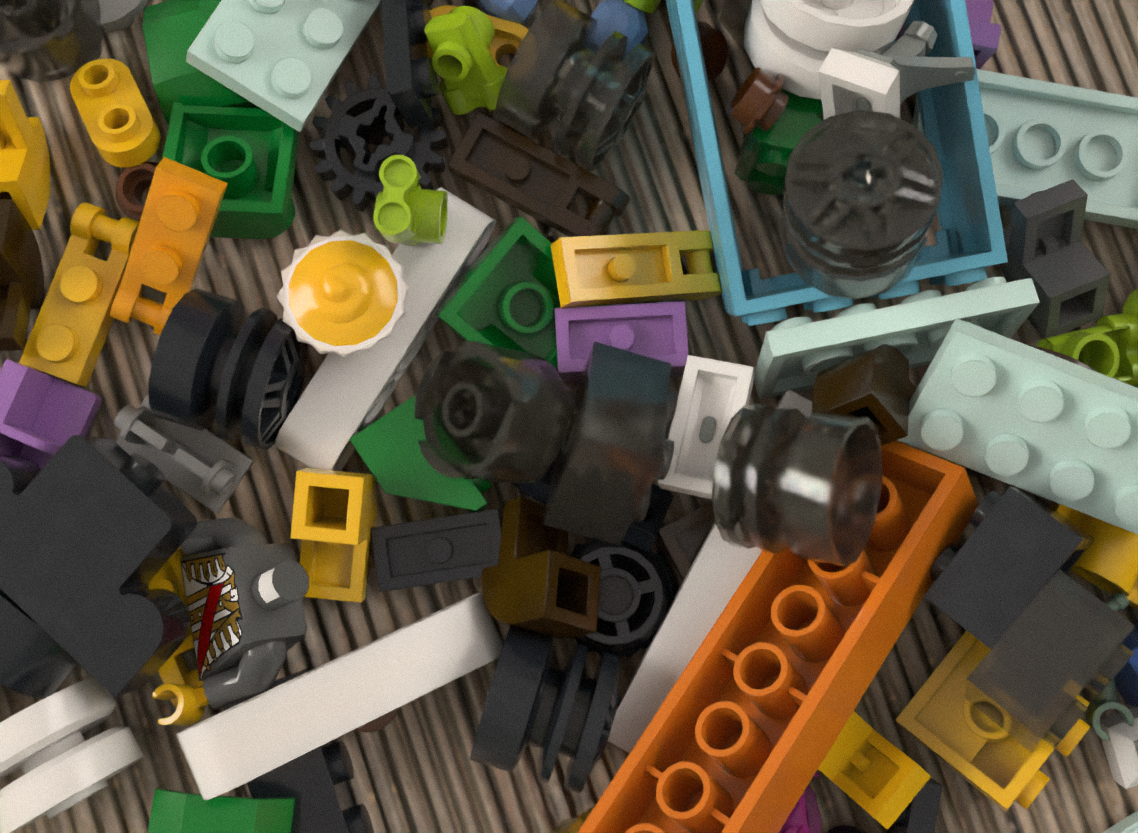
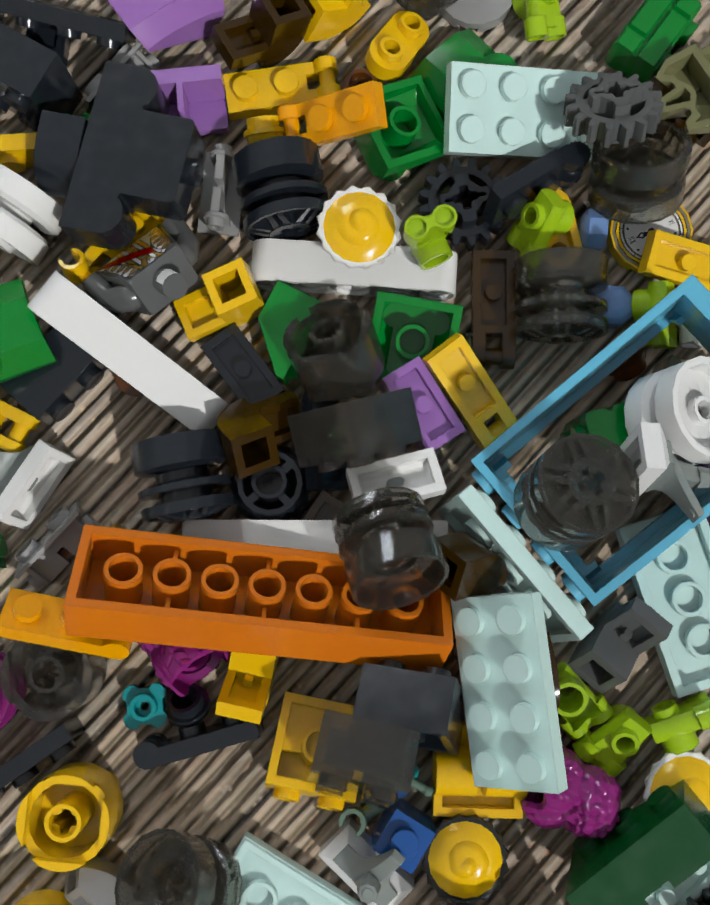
camera: 60 degrees right, 0 degrees up
(131, 351) = (262, 128): none -> yellow plate
(758, 101) = (607, 403): reddish brown plate -> none

